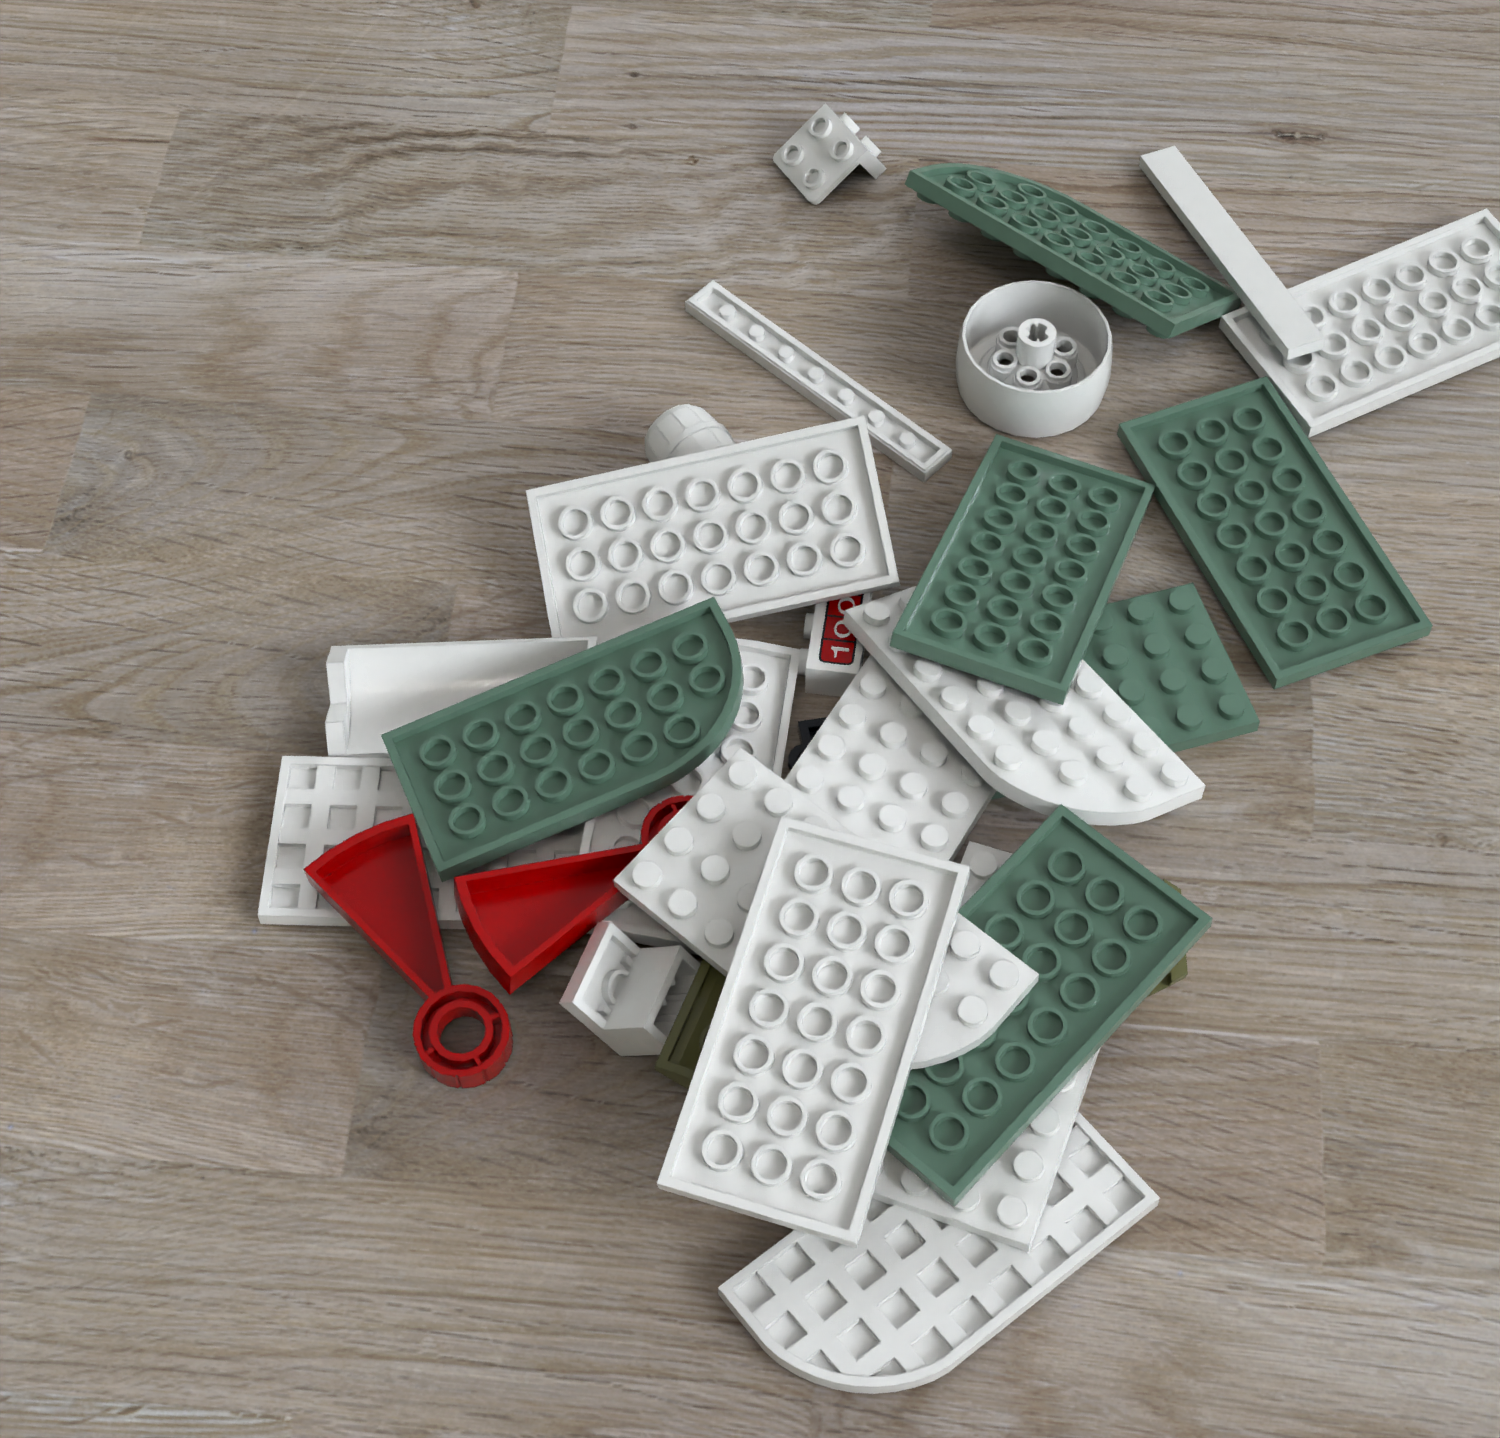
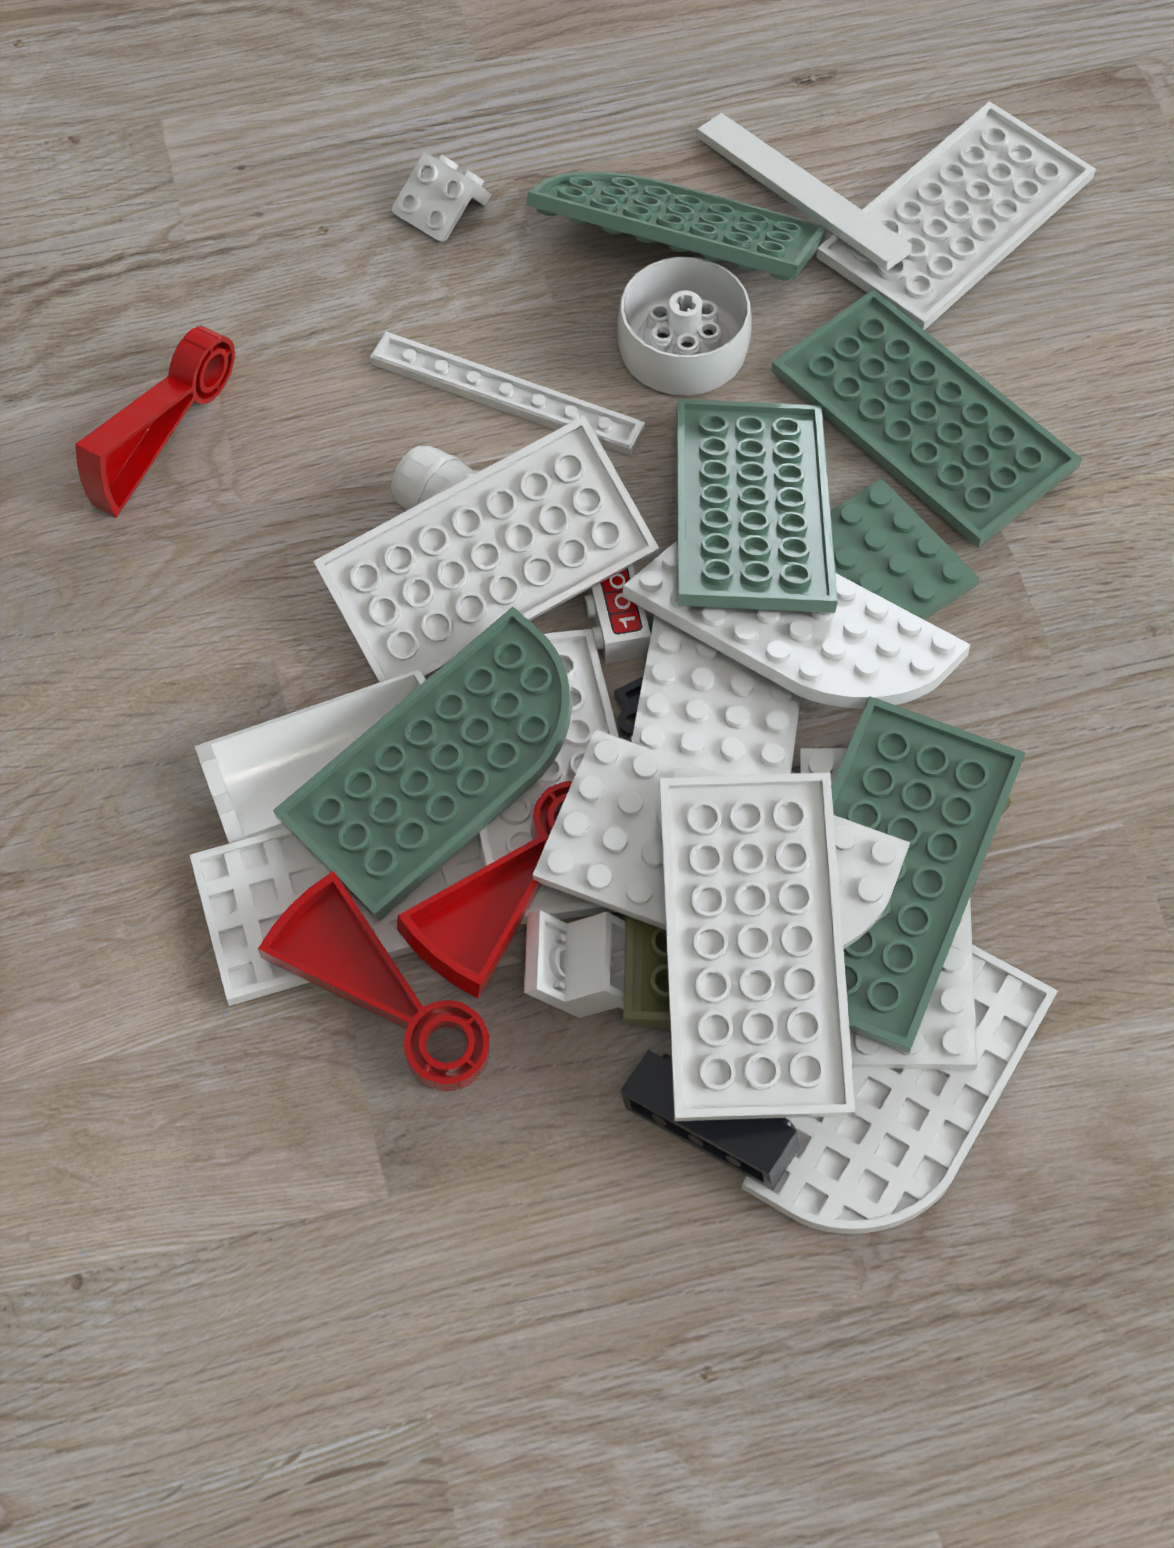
camera: 20 degrees left, 5 degrees up
(388, 322) = (126, 445): none -> red piece
(742, 1248) = (751, 1146): none -> black brick

